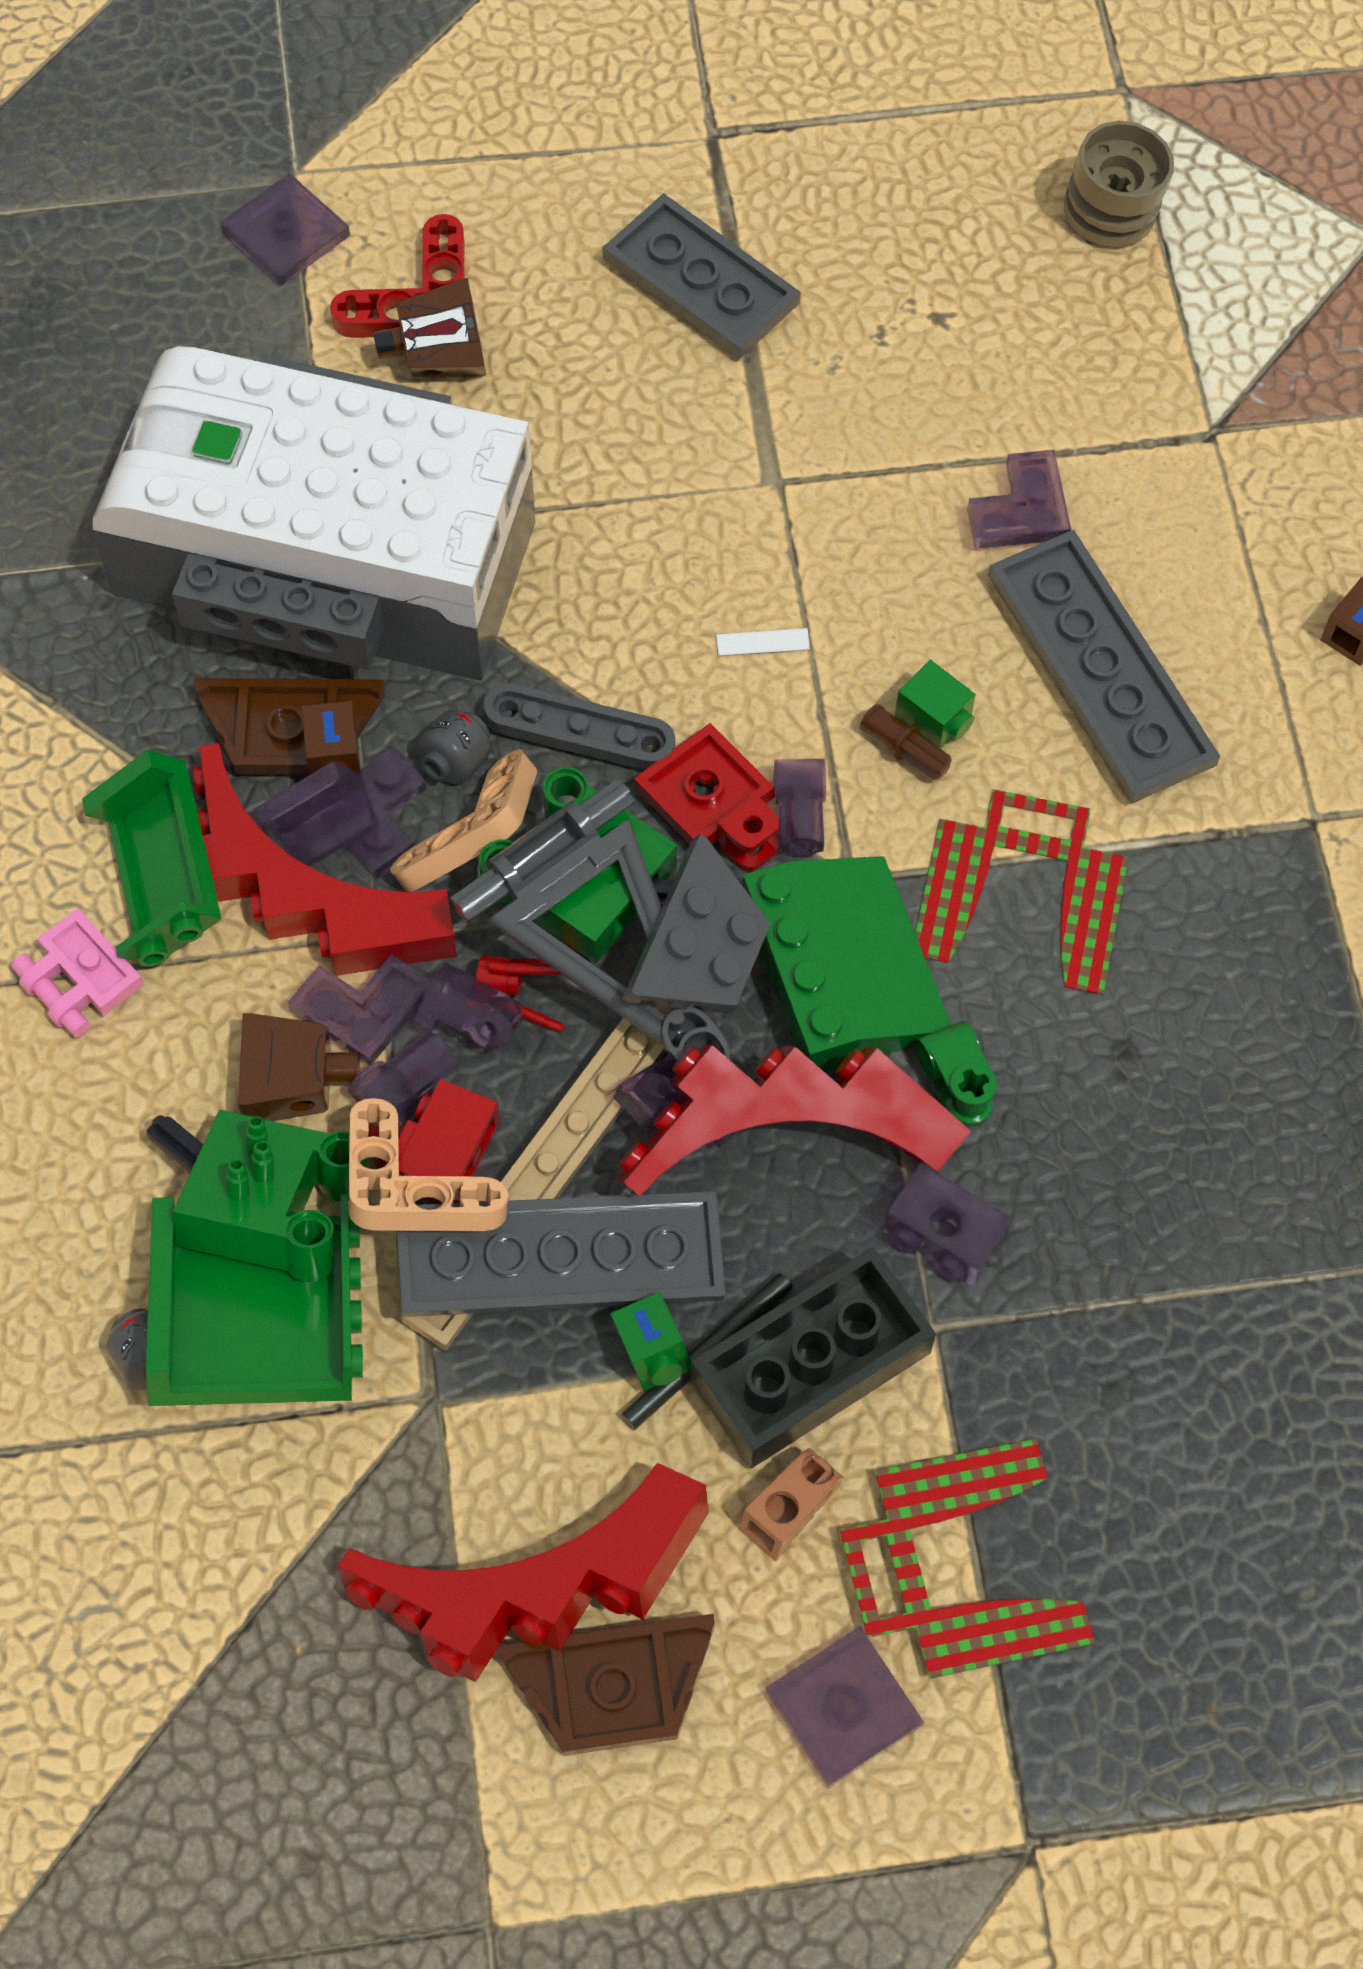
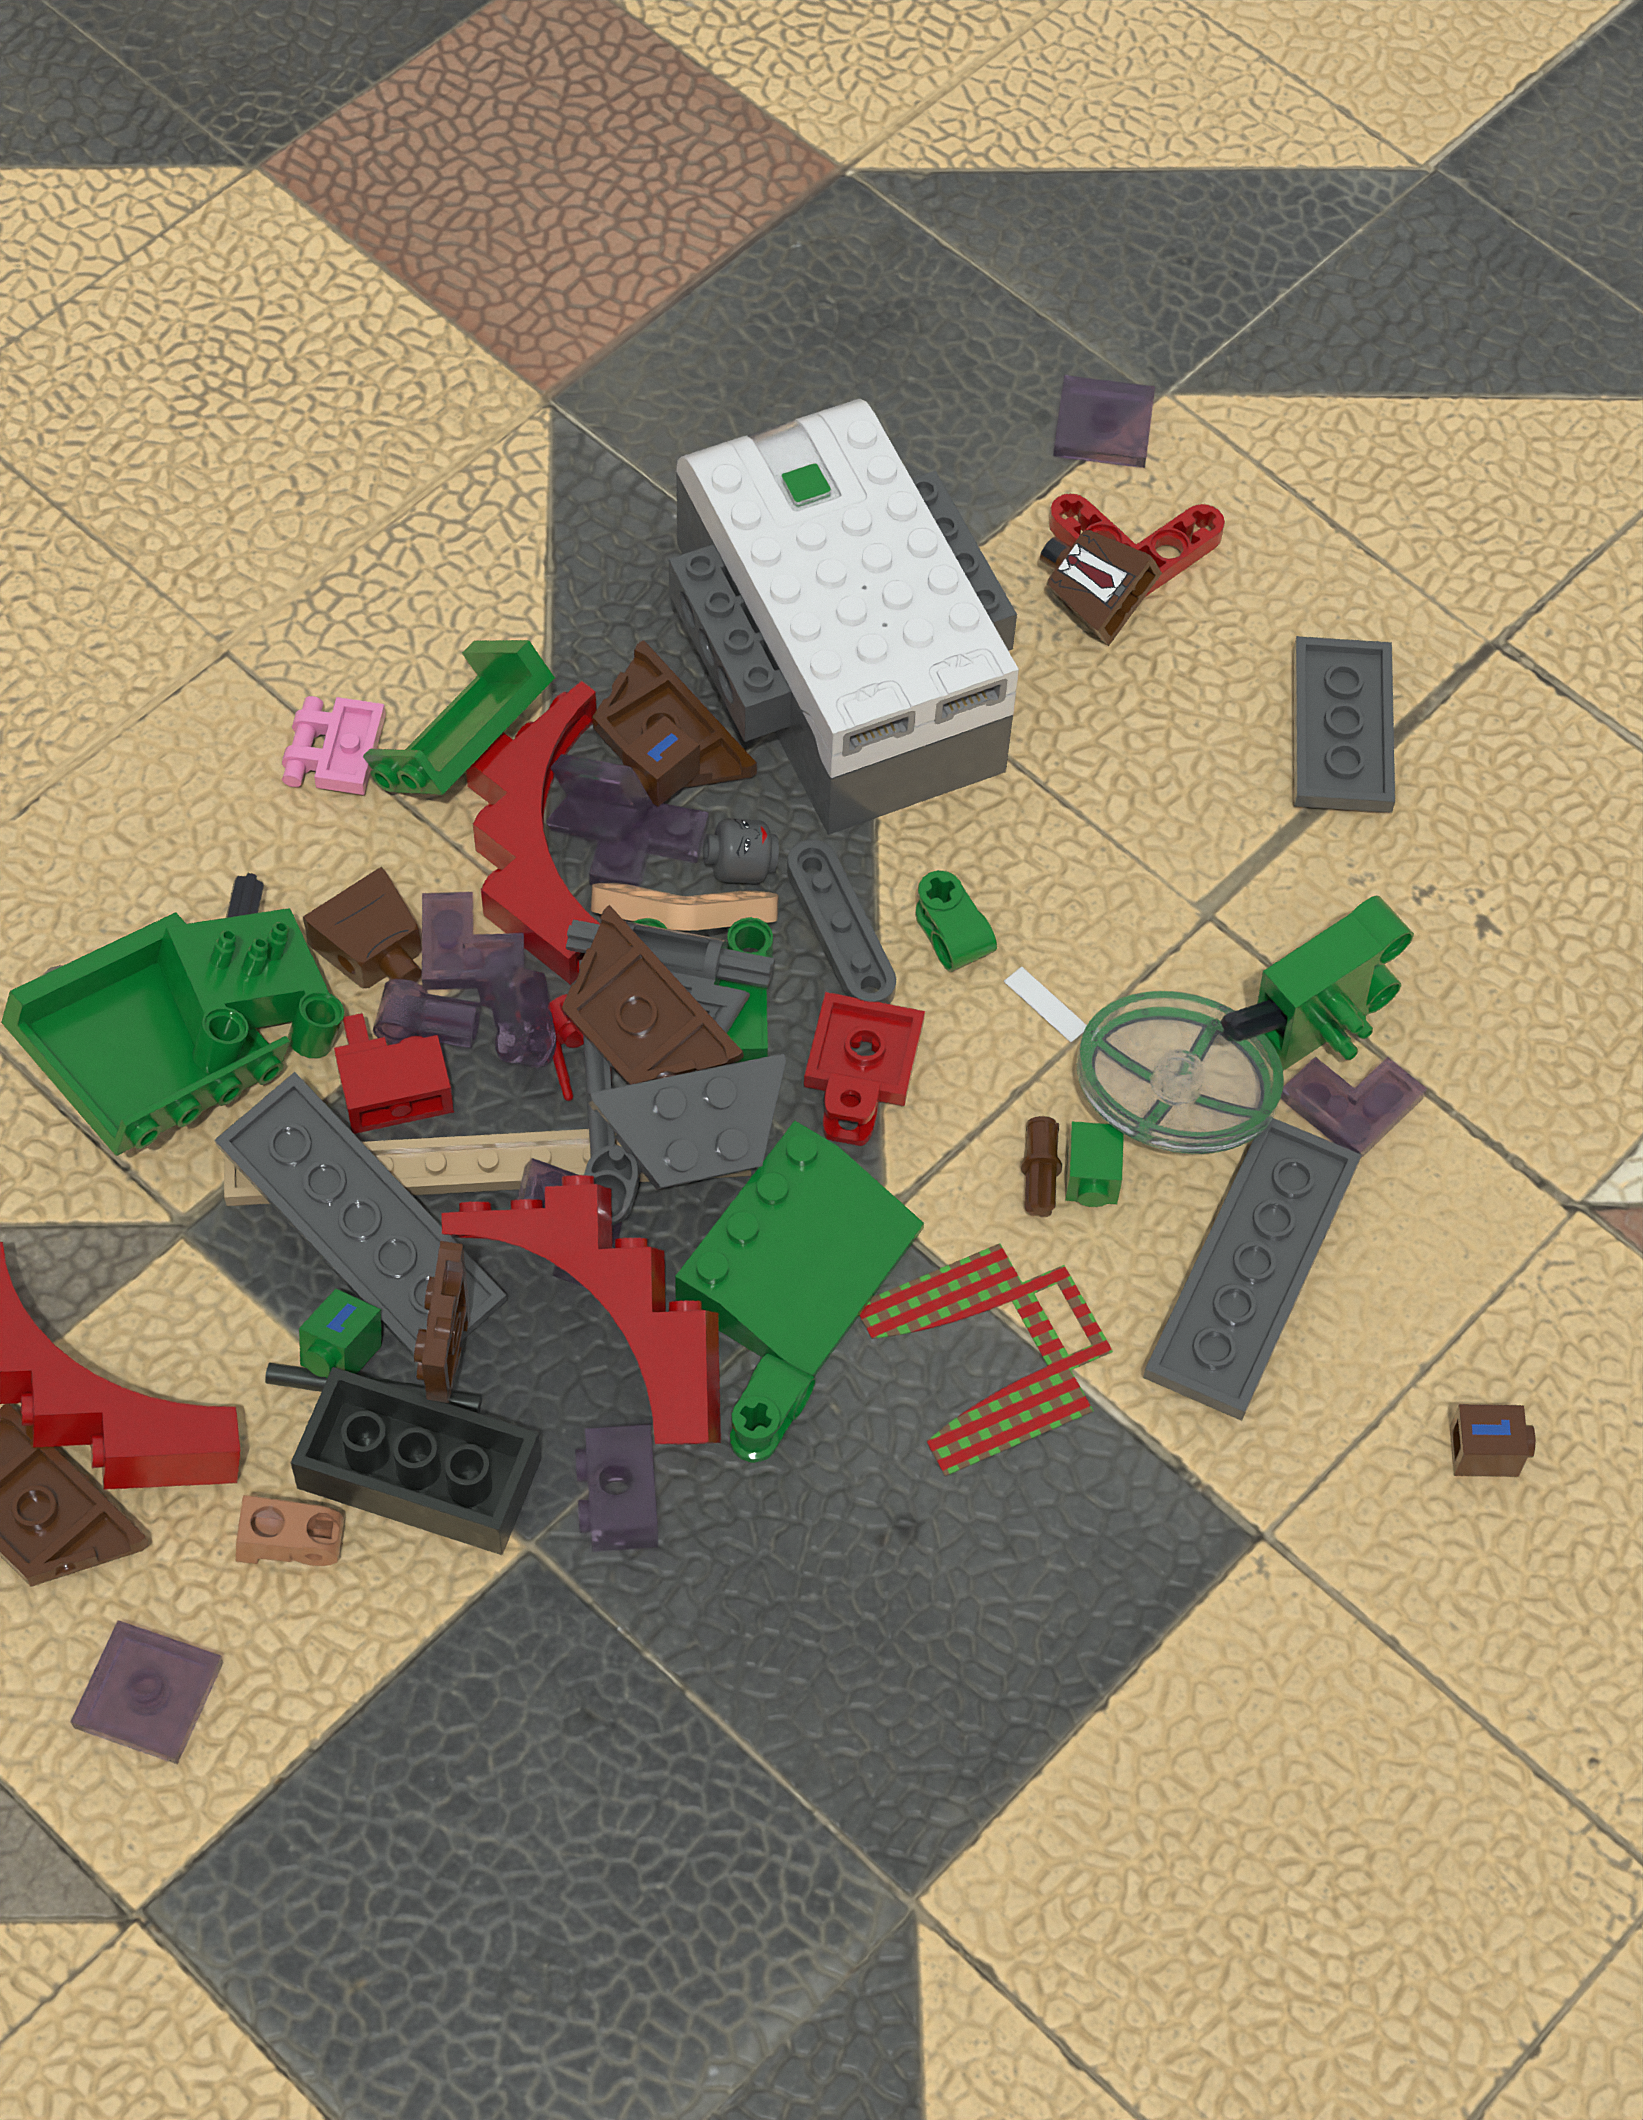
camera: 50 degrees right, 5 degrees down
(399, 1193) = (306, 1064): light nougat beam -> none
(581, 906) = (641, 1011): none -> reddish brown wing
(648, 651) = (952, 921): none -> green piece
(752, 1243) = (448, 1316): none -> reddish brown wing
(800, 796) = (923, 1118): clear purple piece -> none
(912, 592) = (1172, 1079): none -> clear dish
(938, 442) = (1327, 986): none -> green piece
(971, 1633) = (284, 1750): piece -> none

